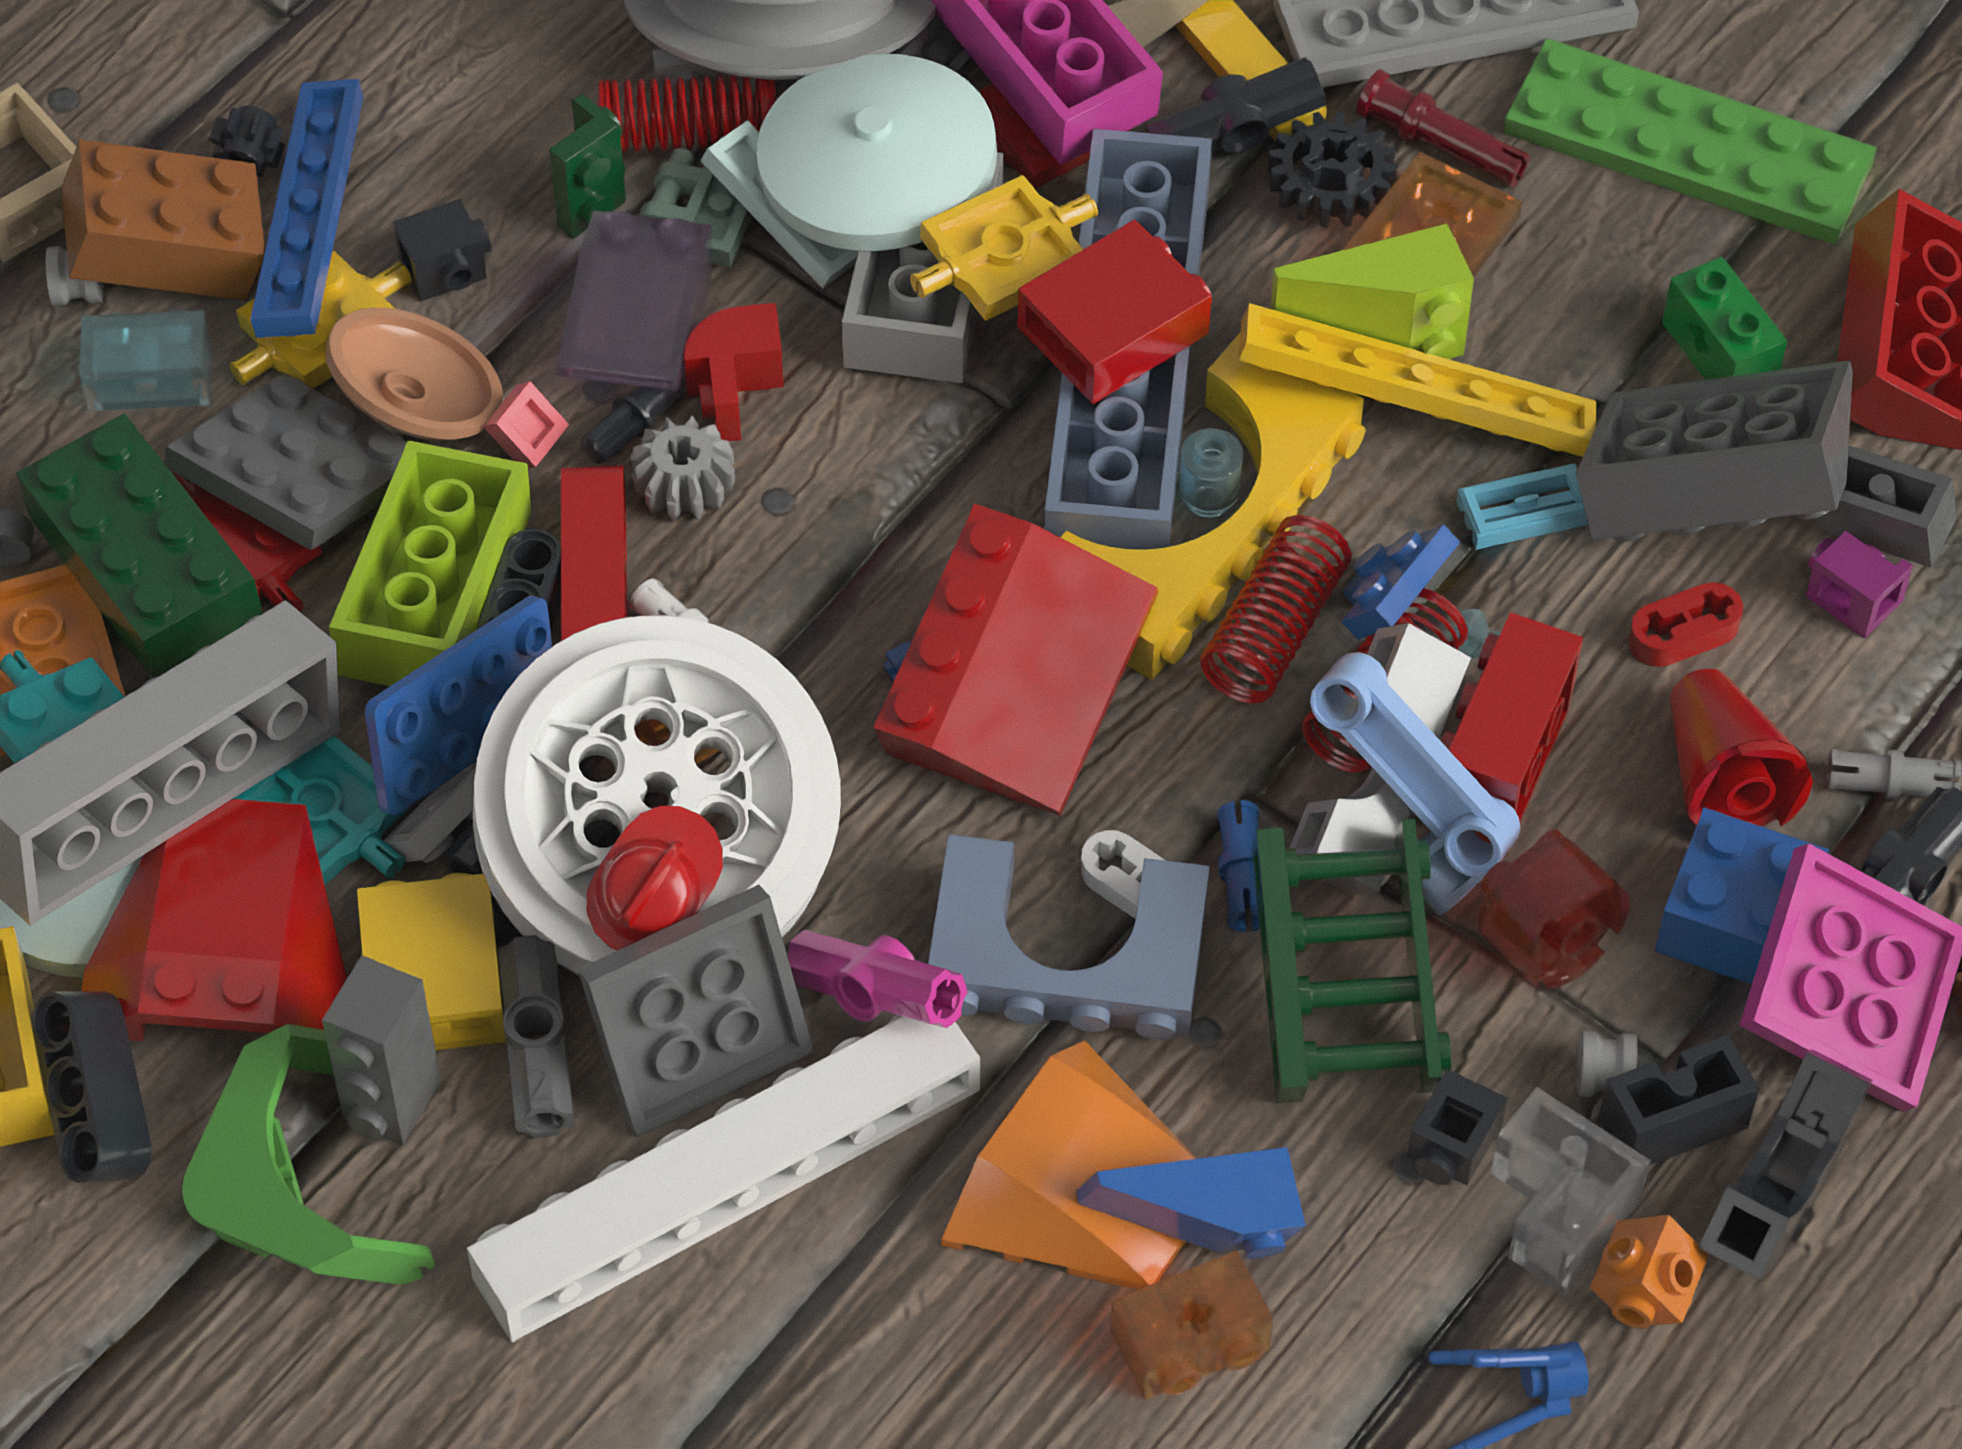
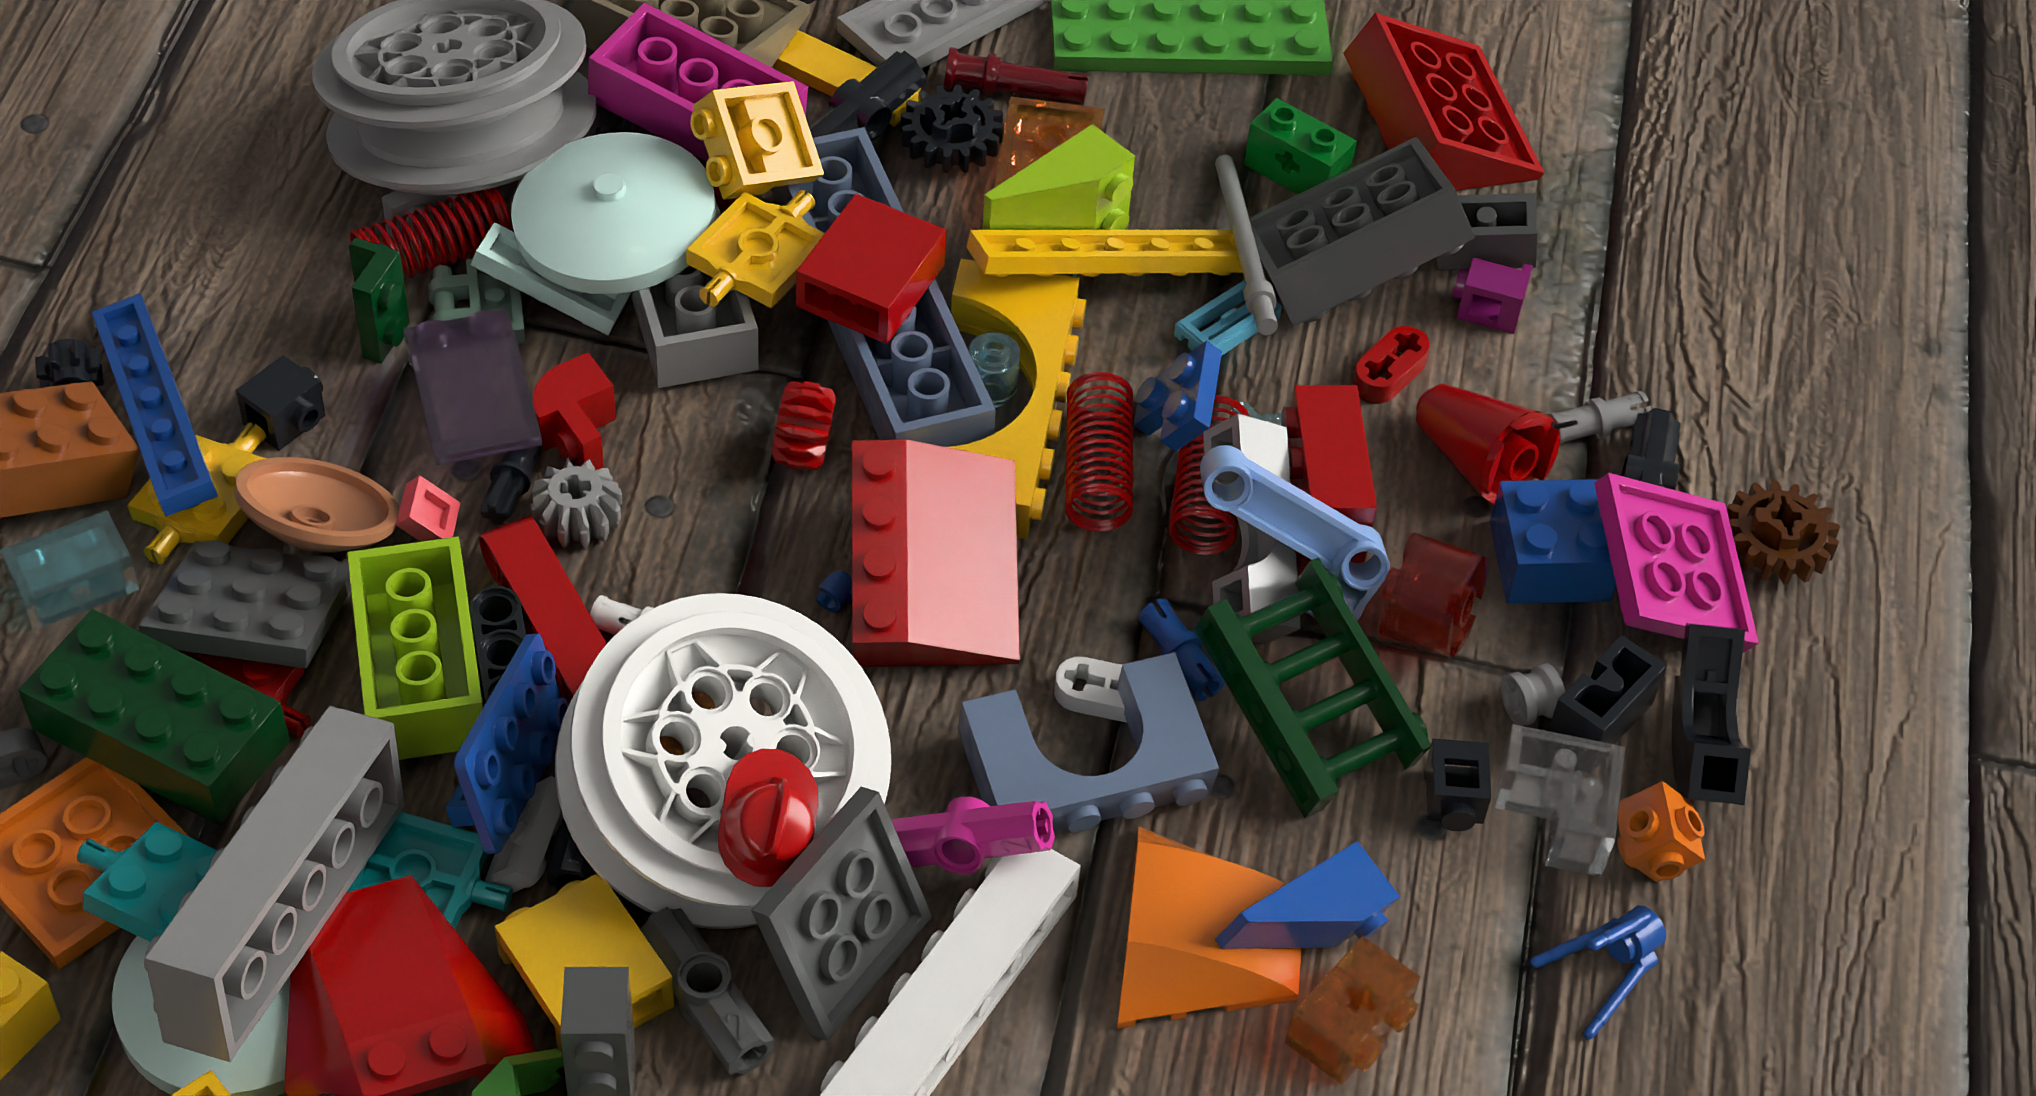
camera: 30 degrees left, 5 degrees down
(962, 465) = (803, 425): none -> red gear
(1062, 118) = (755, 139): none -> yellow plate
(1555, 487) = (1258, 292): none -> light grey bar

